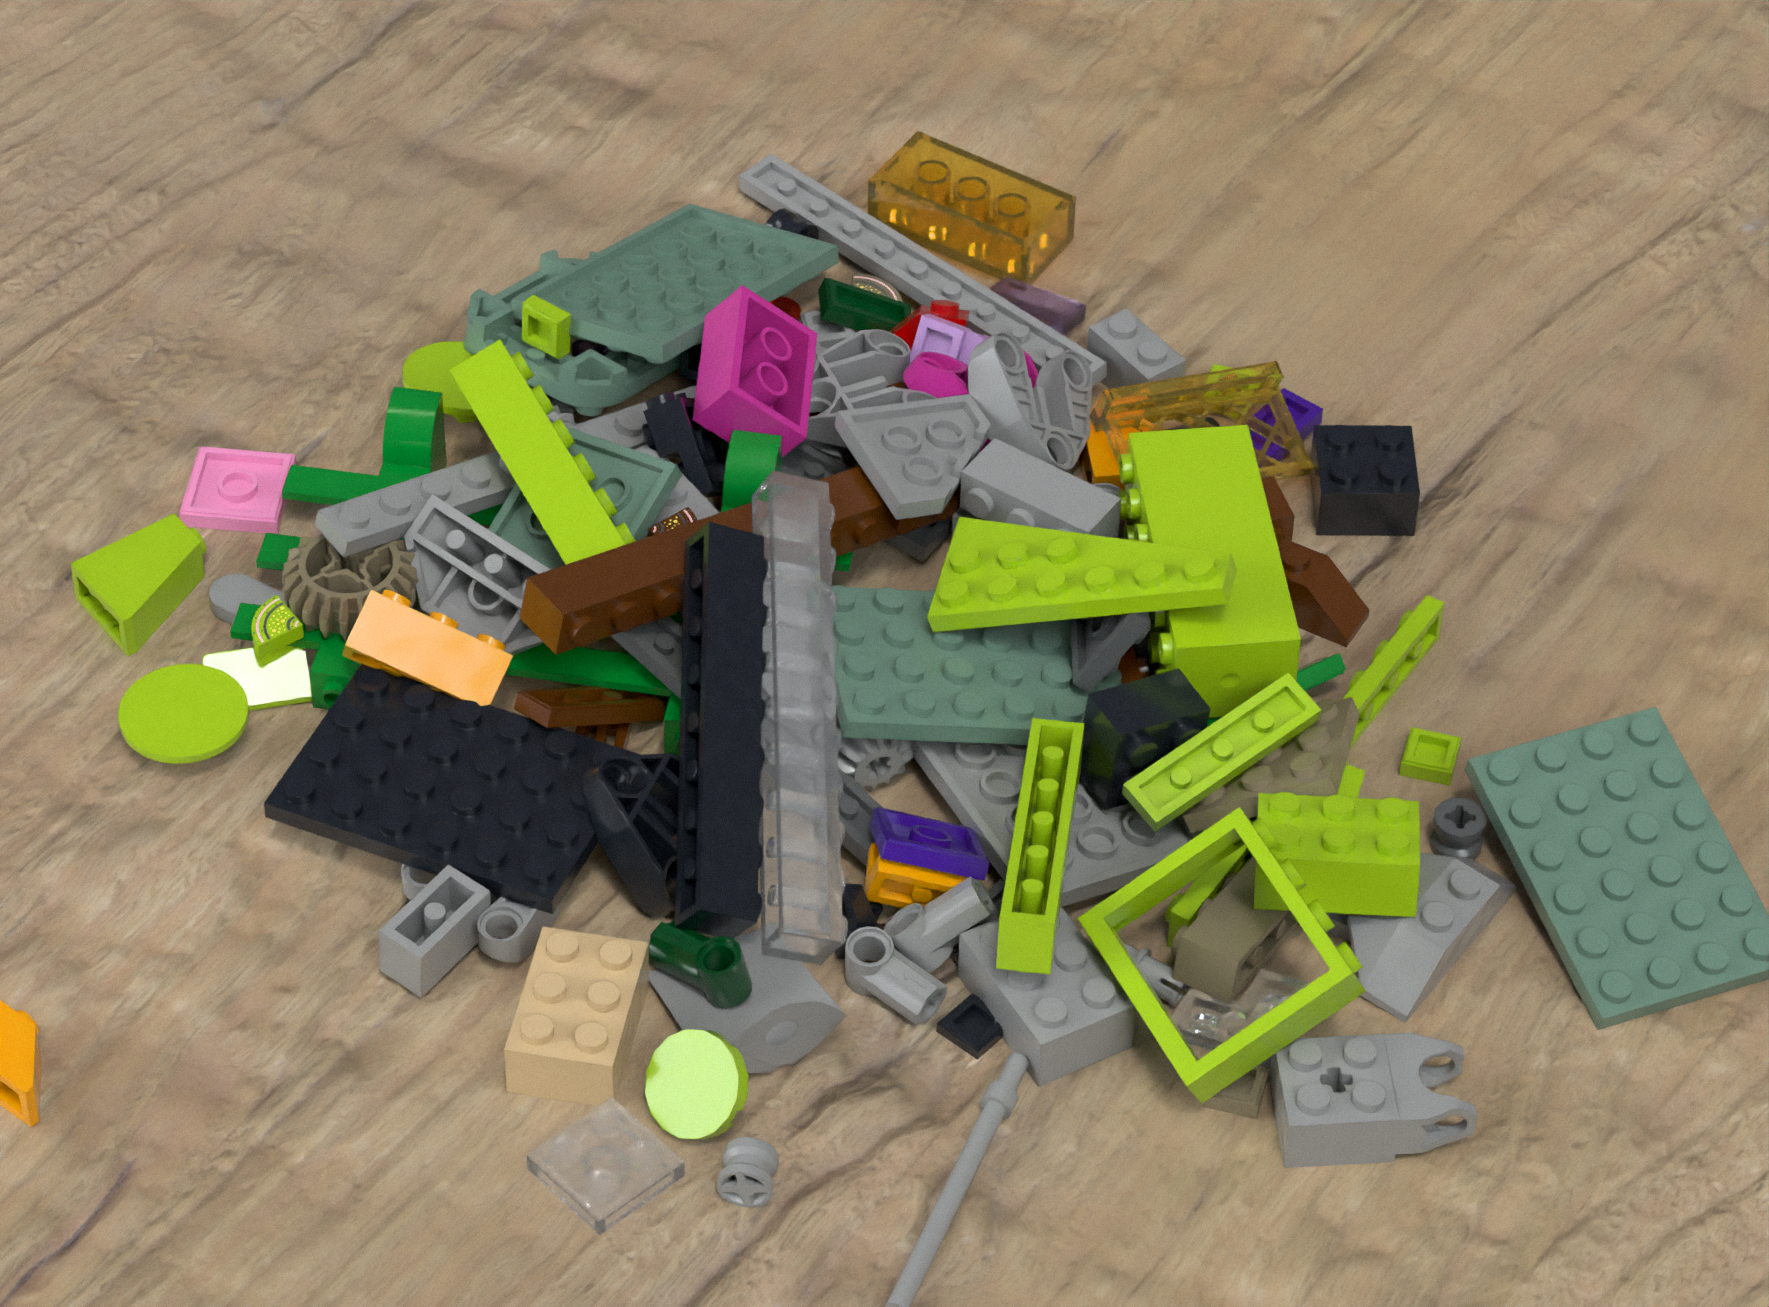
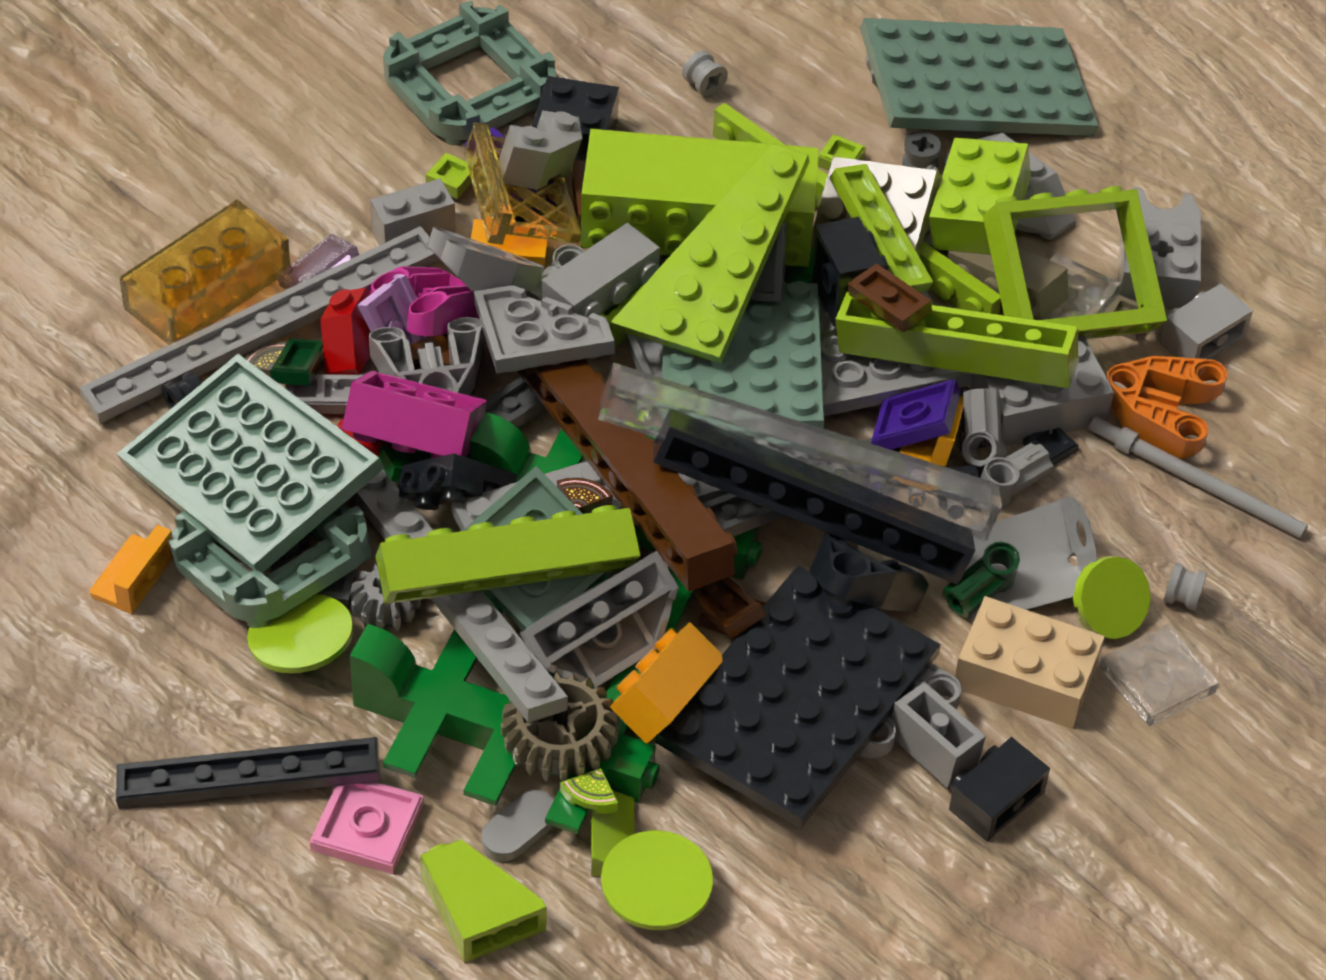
camera: 80 degrees left, 5 degrees up
(277, 381) = (247, 772): none -> black tile
(378, 1009) = (998, 788): none -> black brick
(519, 250) = (134, 570): none -> light orange panel
(546, 327) = (294, 547): lime tile -> none
(1060, 745) = (890, 297): none -> reddish brown plate
(1076, 1101) = (1156, 390): none -> orange connector
(1235, 1165) = (1206, 324): none -> light grey brick
(1282, 440) = (540, 153): none -> light grey brick
(1499, 371) = (453, 117): none -> sand green plate
(1515, 592) = (704, 73): none -> light grey wheel

